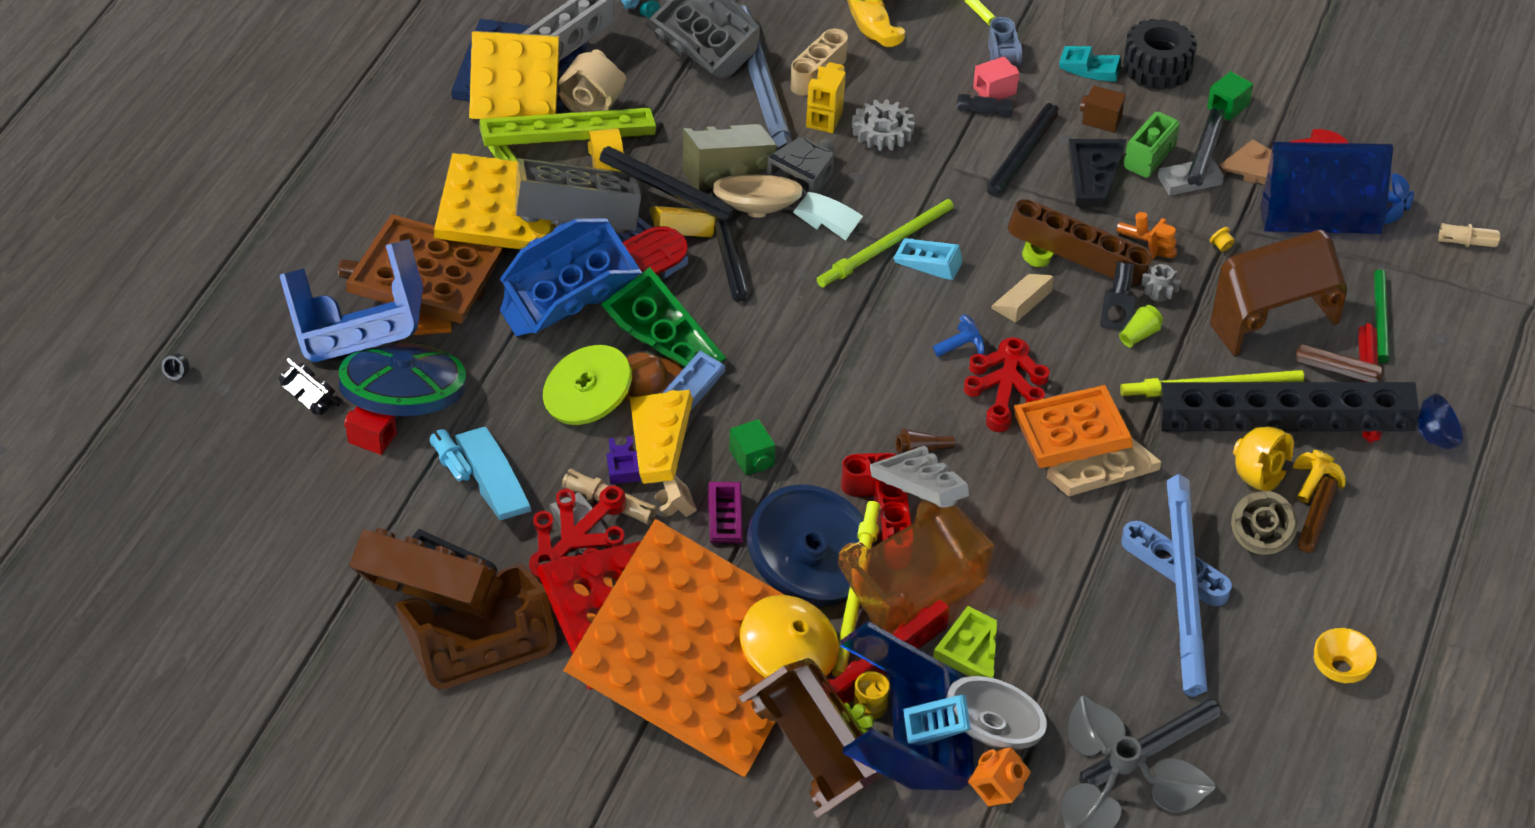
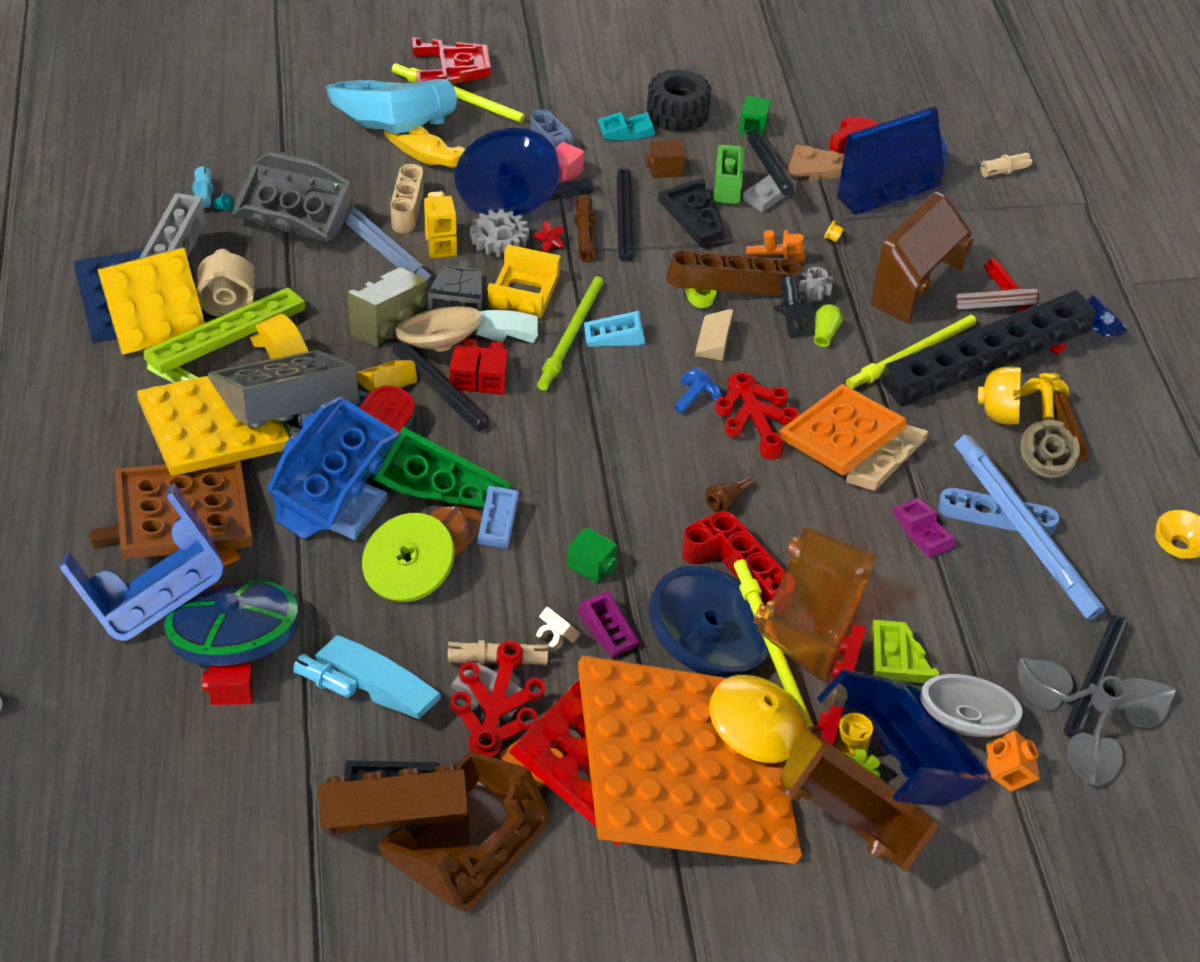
camera: 30 degrees left, 0 degrees up
(300, 379) = (128, 662): hinge -> none
(575, 329) = (359, 512): none -> medium blue plate
(622, 462) = (488, 618): dark purple plate -> none
(660, 432) = (506, 575): yellow wing -> none
(666, 183) = (356, 347): black axle -> none
(772, 243) = (474, 361): none -> red hips
(883, 166) = (527, 268): none -> yellow window
(916, 716) = (915, 746): medium azure slope -> none
(922, 476) = (777, 521): light grey wing -> none
(929, 68) = (507, 171): none -> clear blue dish
(930, 145) = (549, 237): none -> red plant
(976, 141) = (585, 220): none -> reddish brown pin
(1089, 547) = (922, 527): none -> magenta slope
(1381, 316) = (990, 248): green bar -> none

